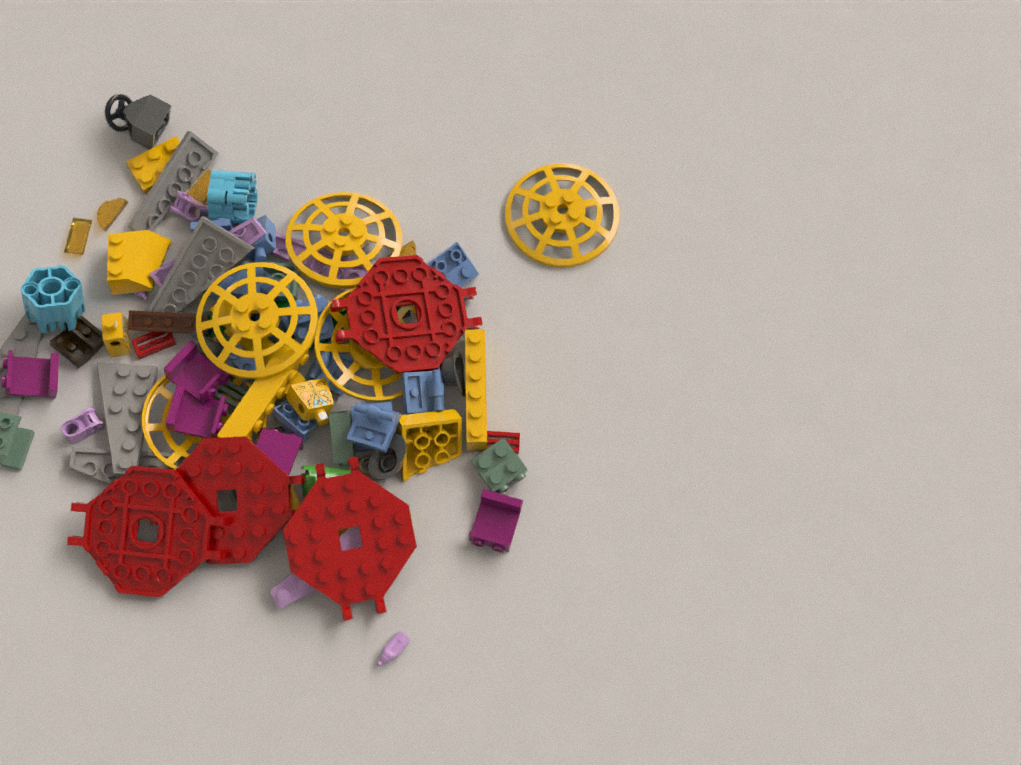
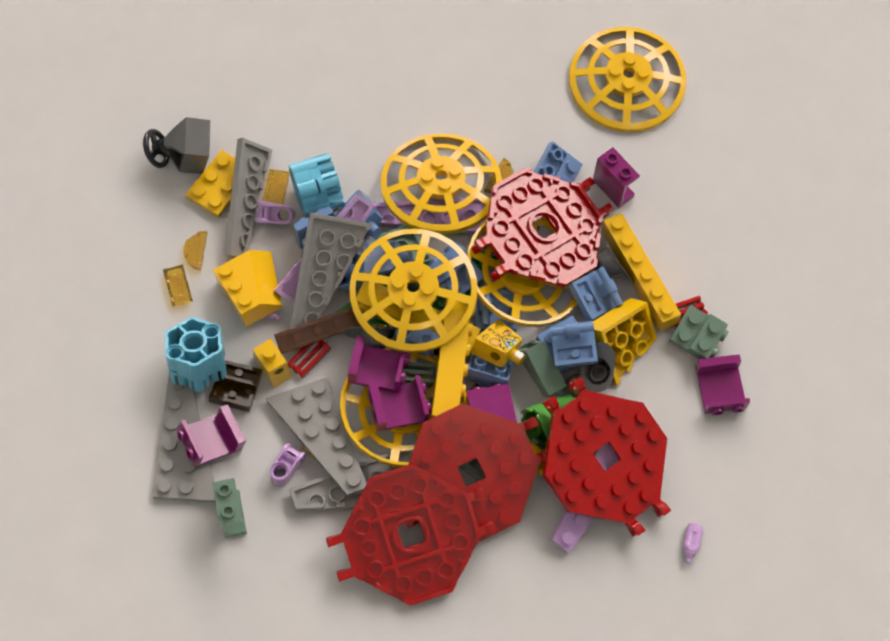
camera: 25 degrees left, 0 degrees up
(496, 296) = (614, 176): none -> magenta panel

